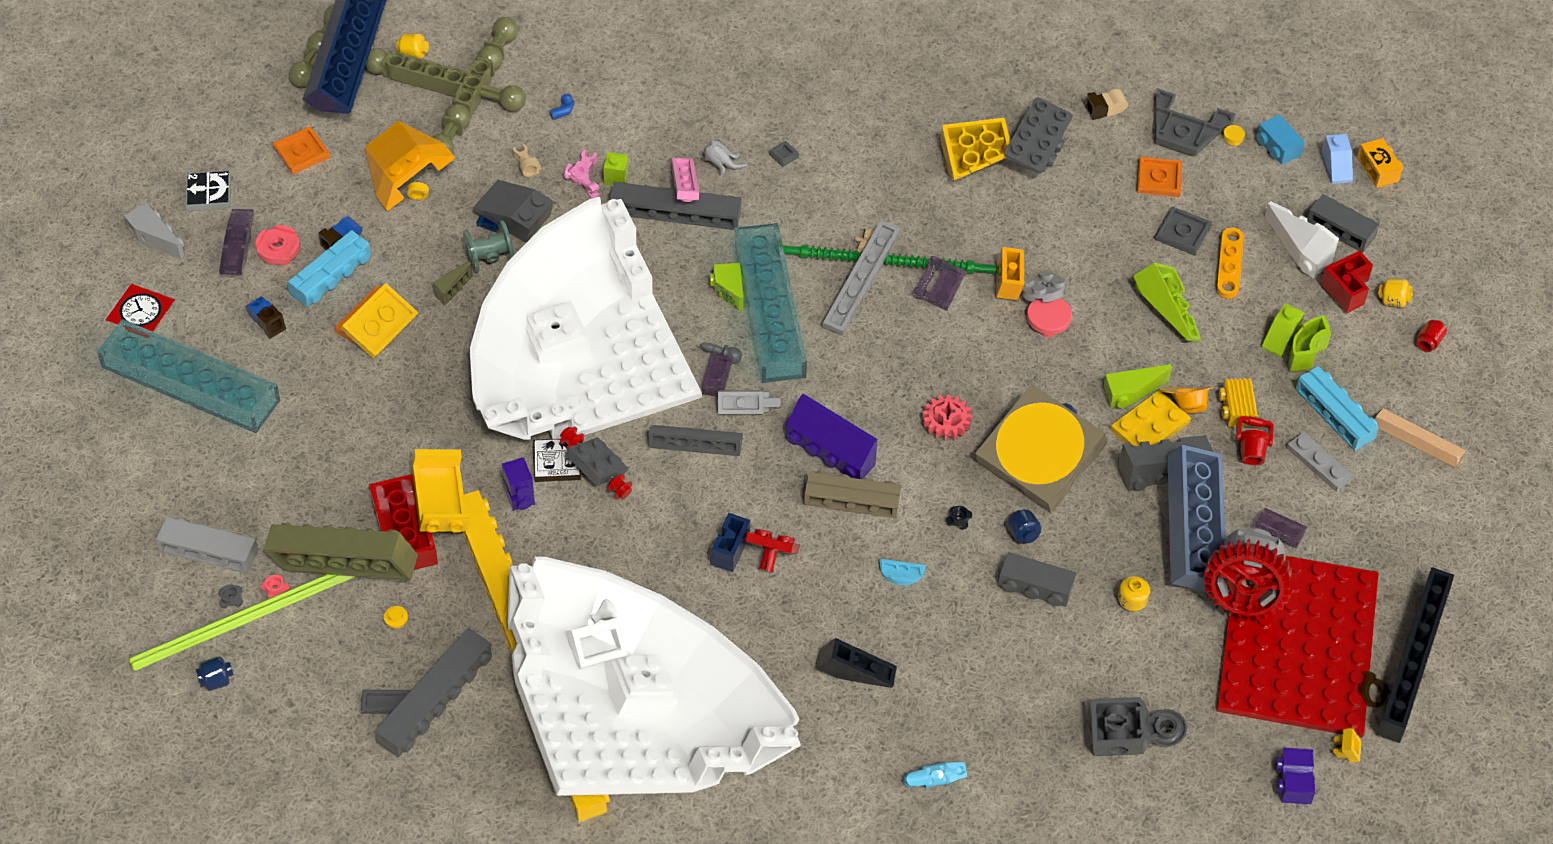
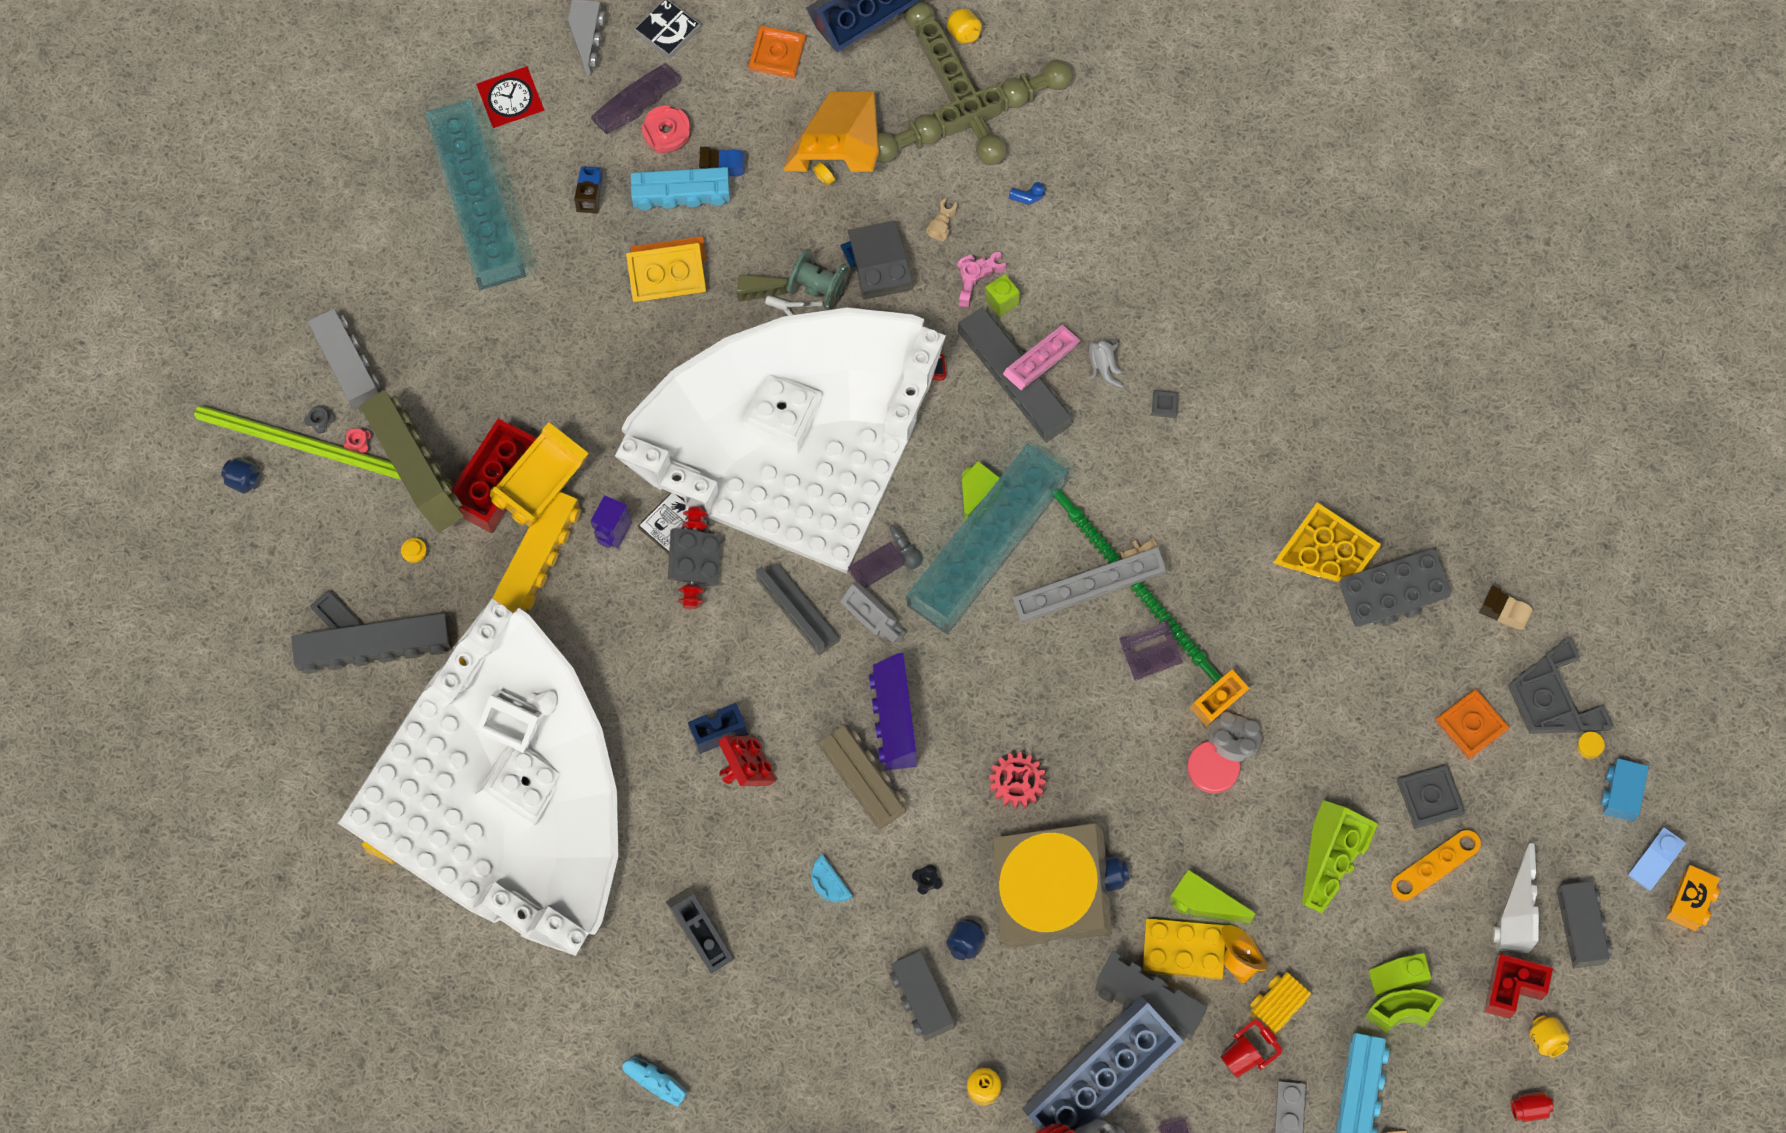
camera: 50 degrees right, 15 degrees up
(481, 281) = (785, 305): none -> white plant

